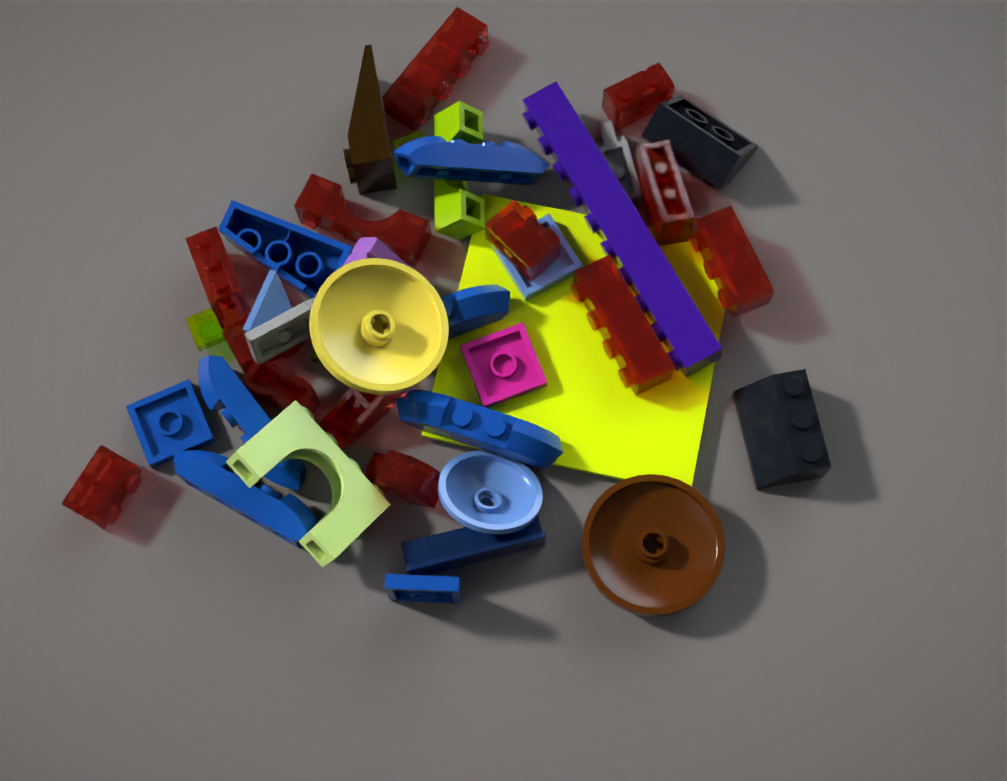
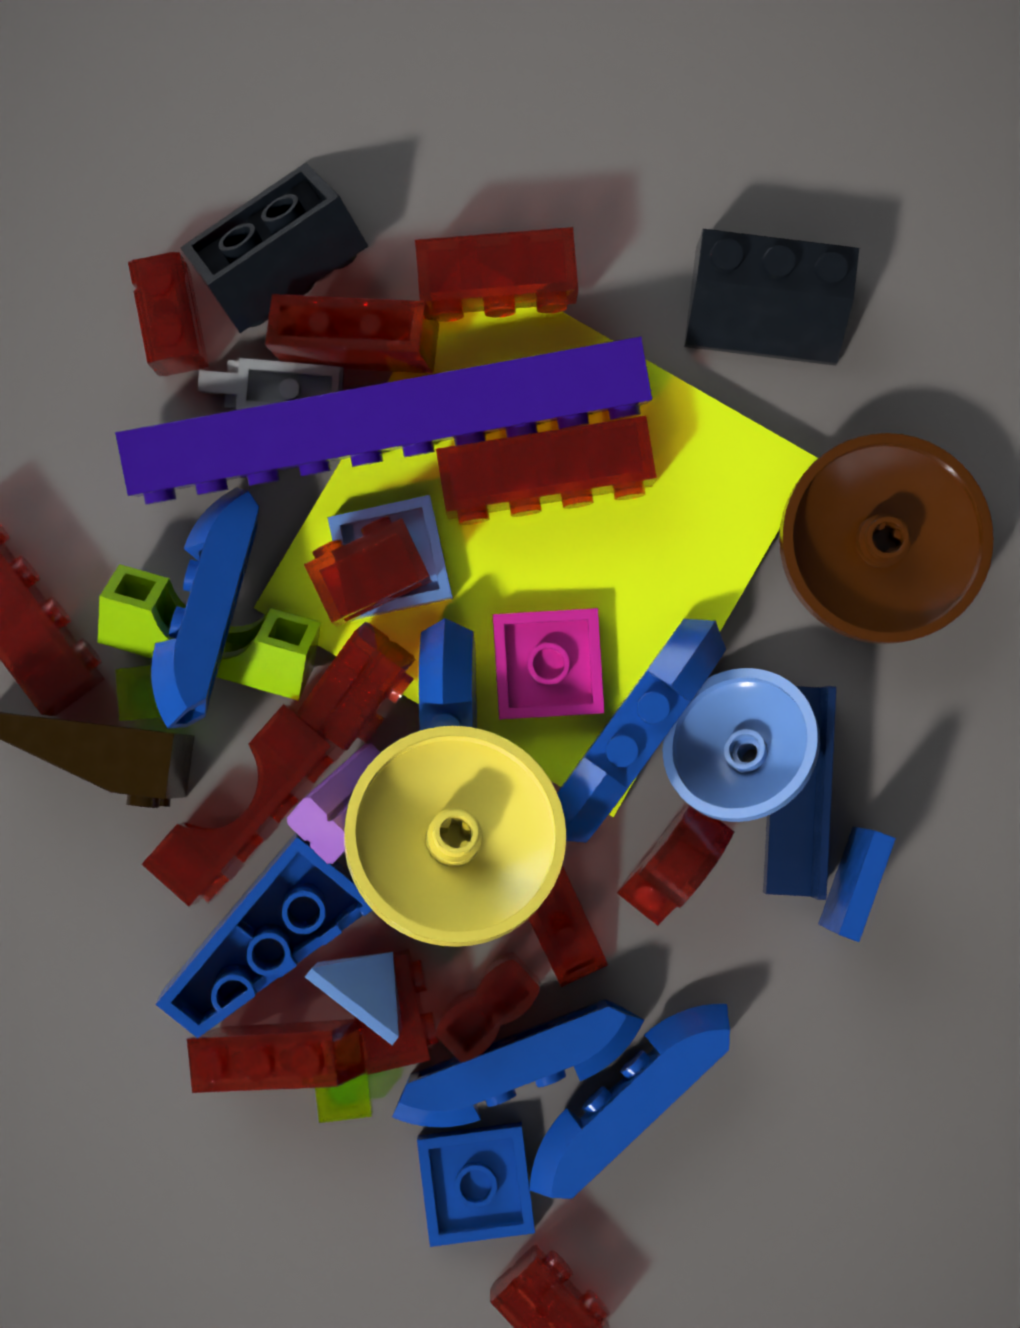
camera: 75 degrees left, 15 degrees up
(280, 332) = (410, 980): light grey hinge -> none
(354, 497) = (694, 945): yellowish green arch -> none
(453, 259) = (357, 686): none -> clear red brick

